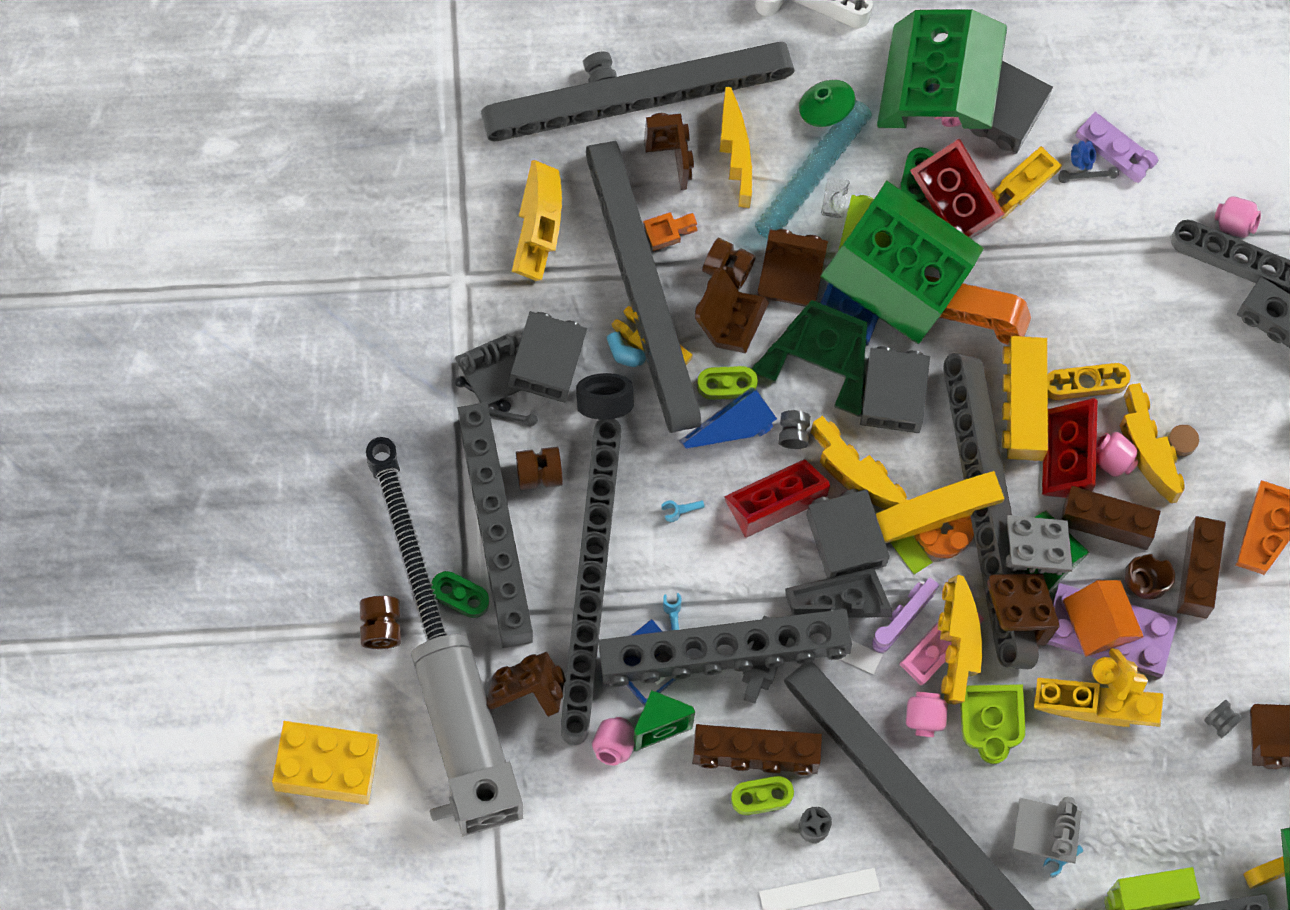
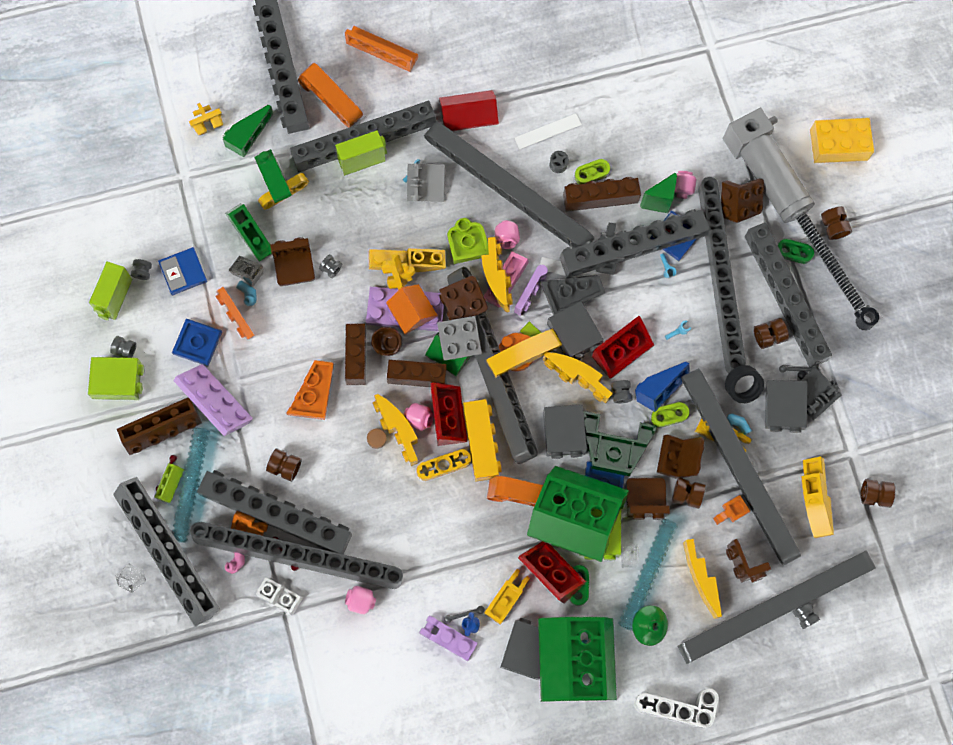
camera: 170 degrees right, 5 degrees up
(444, 206) = (881, 493): none -> reddish brown wheel

